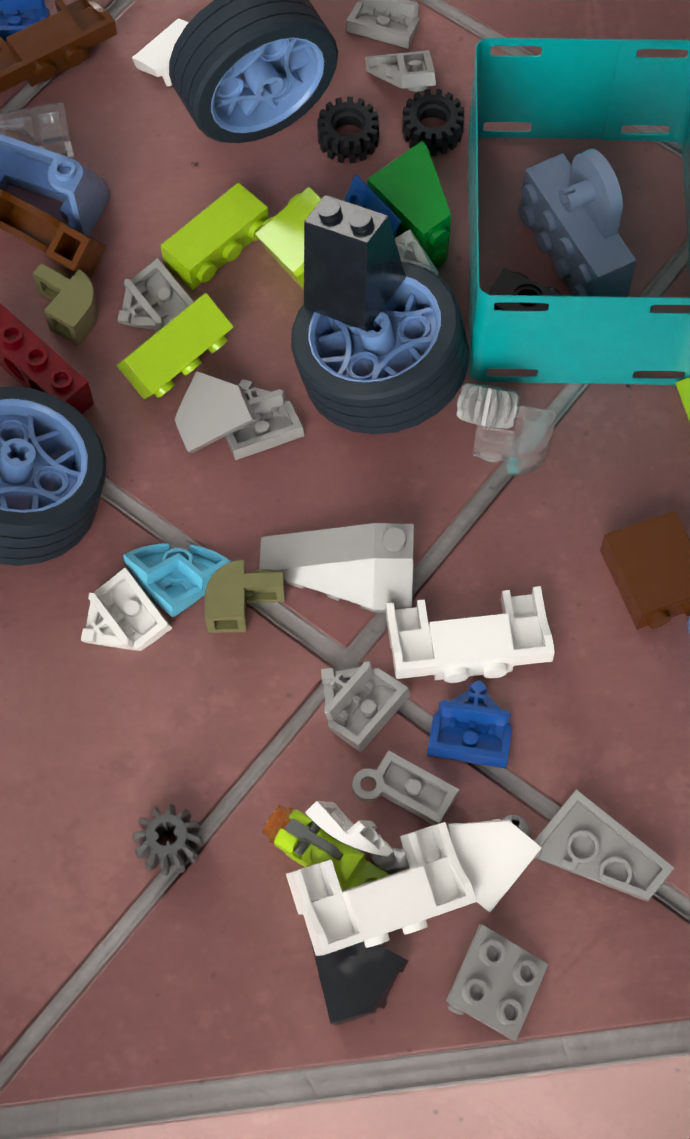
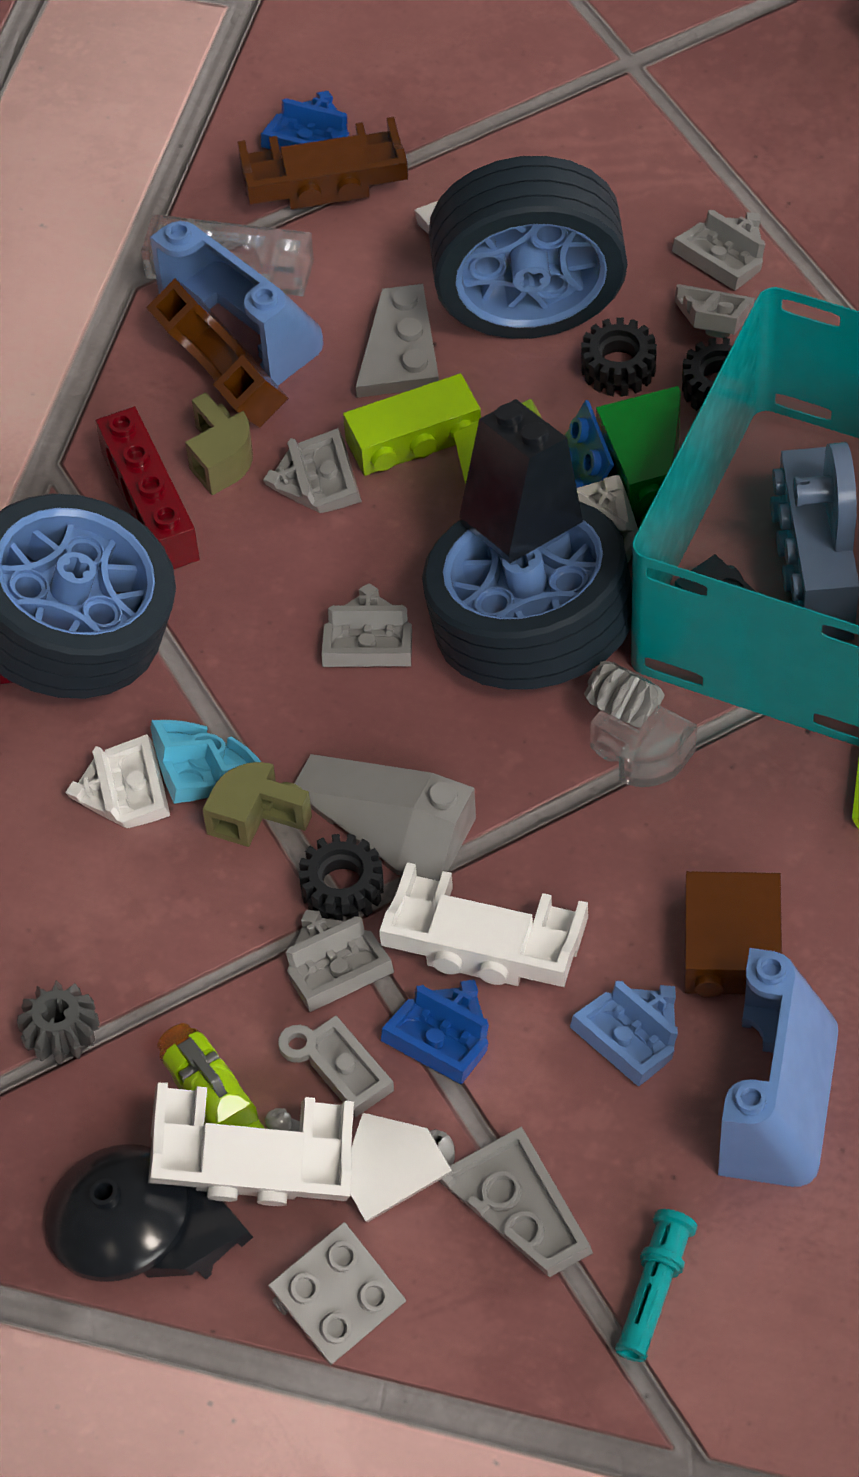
camera: 25 degrees right, 10 degrees down
(172, 173) = (399, 345): none -> light grey wing
(176, 348) = (310, 525): lime brick -> none
(211, 411) = (316, 605): light grey slope -> none
(304, 1007) = (119, 1234): none -> black dish
(338, 825) = (245, 1070): white slope -> none
(342, 612) = (335, 857): none -> black tyre
(614, 674) = (631, 1029): none -> medium blue slope

